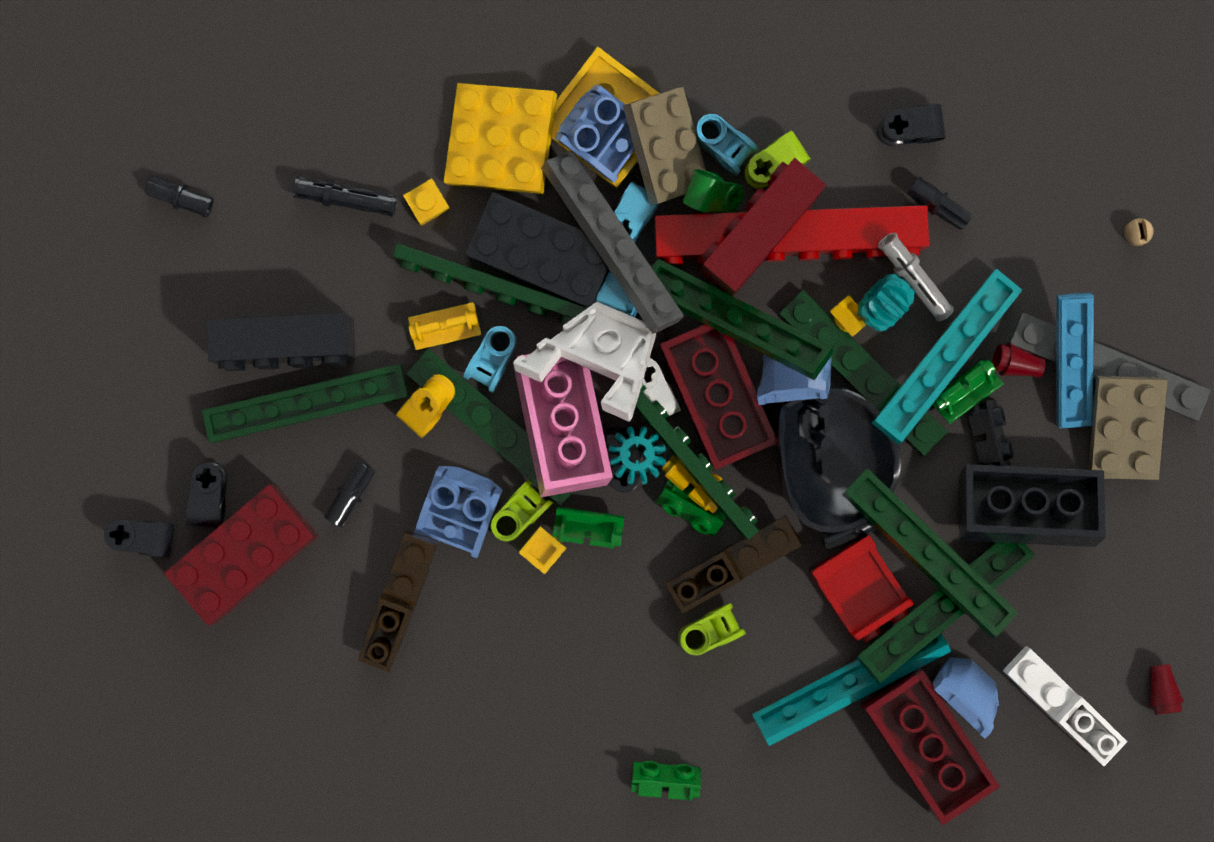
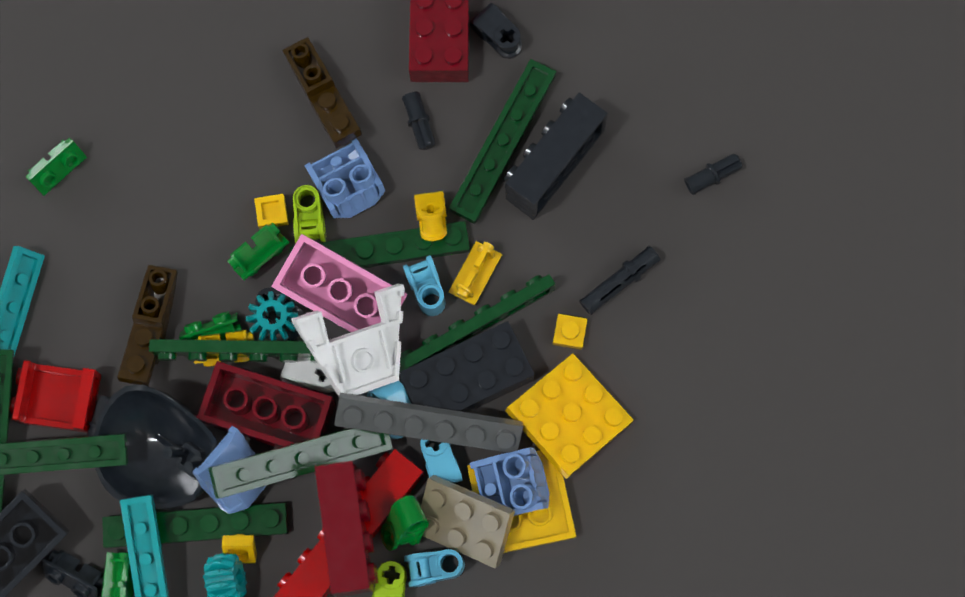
camera: 135 degrees right, 10 degrees down
(712, 629) = (120, 275): lime piece -> none

